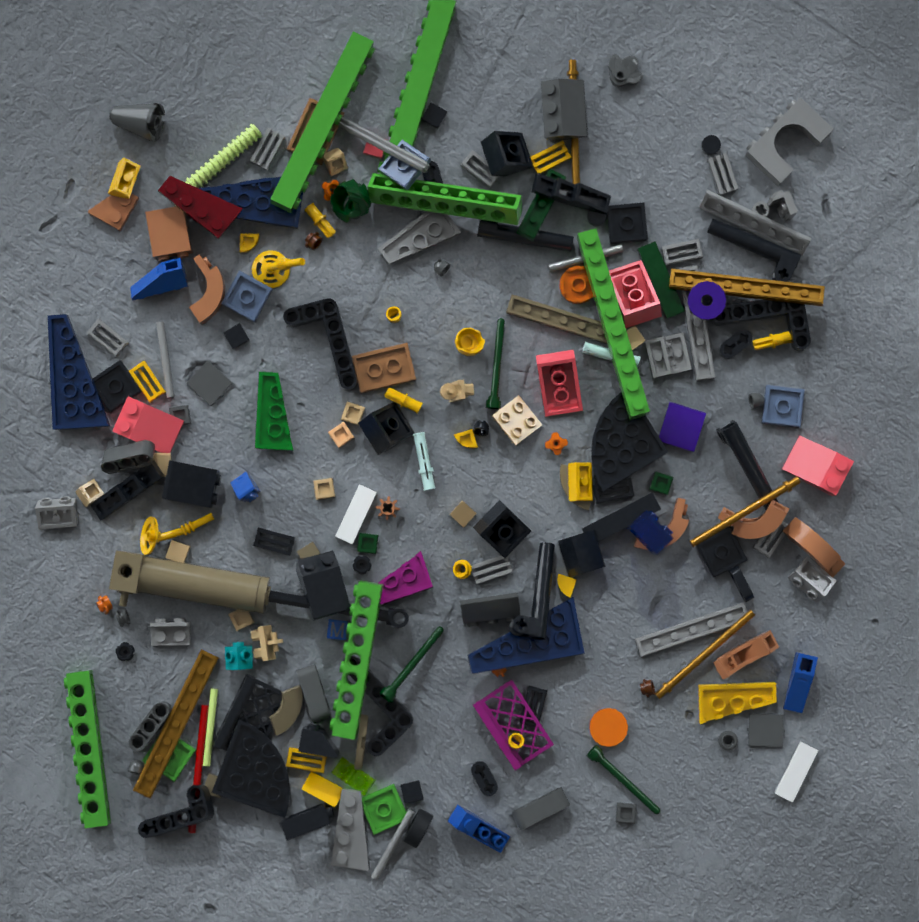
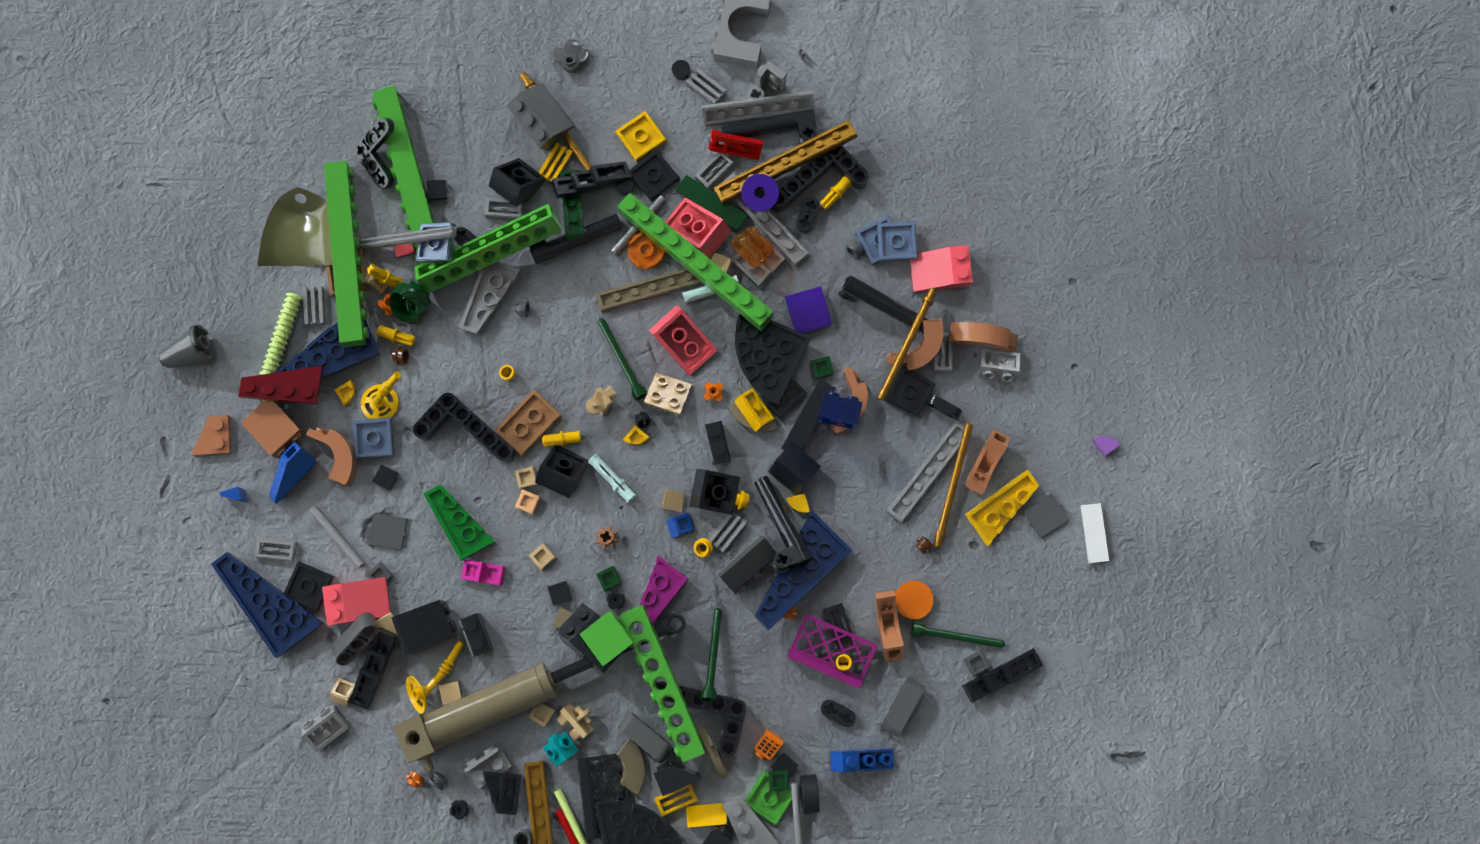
camera: 30 degrees left, 5 degrees down
(104, 269) = (235, 493): none -> blue slope
(124, 179) = (206, 407): yellow slope -> none
(156, 394) = (348, 571): yellow tile -> none
(170, 661) = (503, 791): none -> black wing
(228, 518) = (476, 635): none -> black brick
(245, 488) = (474, 599): blue slope -> none
(258, 537) = (512, 634): black tile -> none
(267, 470) = (483, 572): none -> dark pink slope
(288, 78) = (296, 238): none -> olive piece
(319, 528) = (559, 593): none -> black tile
(335, 594) = (607, 638): none -> bright green tile
(337, 629) = (630, 669): blue tile -> none
(343, 164) = (383, 276): none -> yellow axle
(355, 778) = (729, 786): clear neon green slope -> none
(356, 514) = (583, 560): white tile -> none
(400, 800) = (778, 780): none -> dark green tile
(401, 43) = (371, 154): none -> black beam
(410, 766) = (768, 745): none -> orange slope
(455, 537) = (680, 525): none -> blue slope
(469, 341) = (585, 354): yellow hair -> none
(520, 551) = (742, 500): none -> yellow plate
(531, 489) = (717, 442): none -> black brick
(573, 735) = (889, 626): none -> nougat arch
(638, 181) = (641, 136): none -> yellow tile
(640, 837) = (1002, 675): none -> black slope
(670, 342) = (752, 247): none -> clear orange brick
(713, 243) = (735, 145): none -> red plate
(734, 740) = (1026, 542): dark grey plate -> none
(796, 417) = (897, 241): none -> sand blue tile
(800, 682) = (1047, 455): blue slope -> none
(856, 705) = (1106, 444): none -> medium lavender tile

